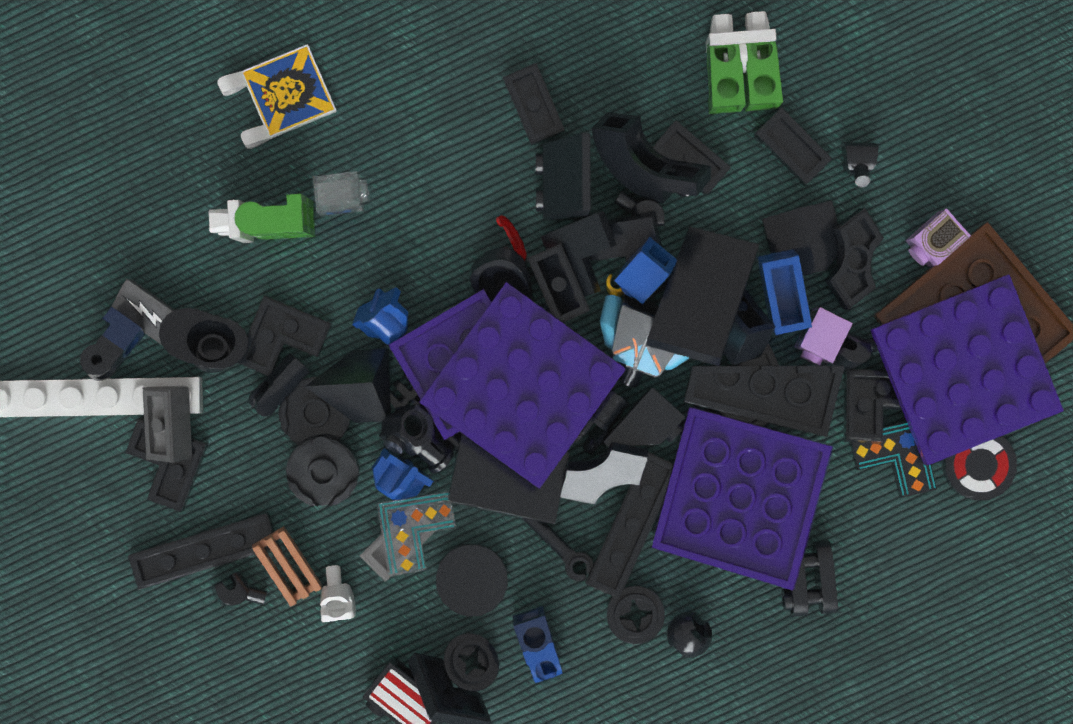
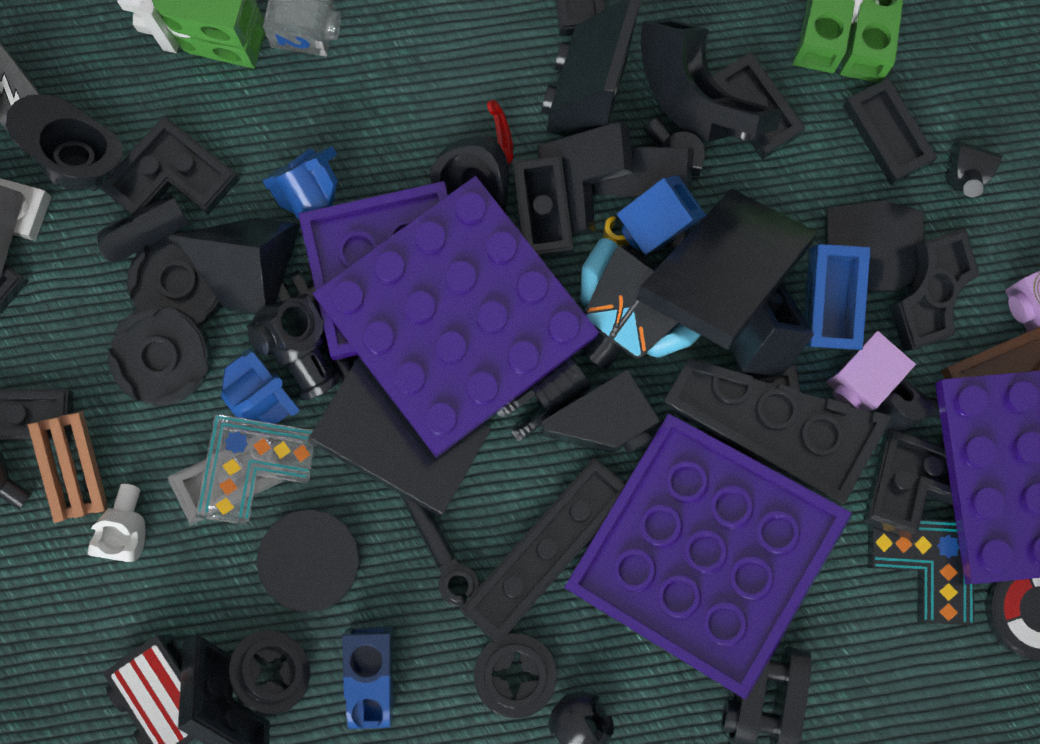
camera: 10 degrees right, 10 degrees down
(615, 467) = (550, 461): tile -> none

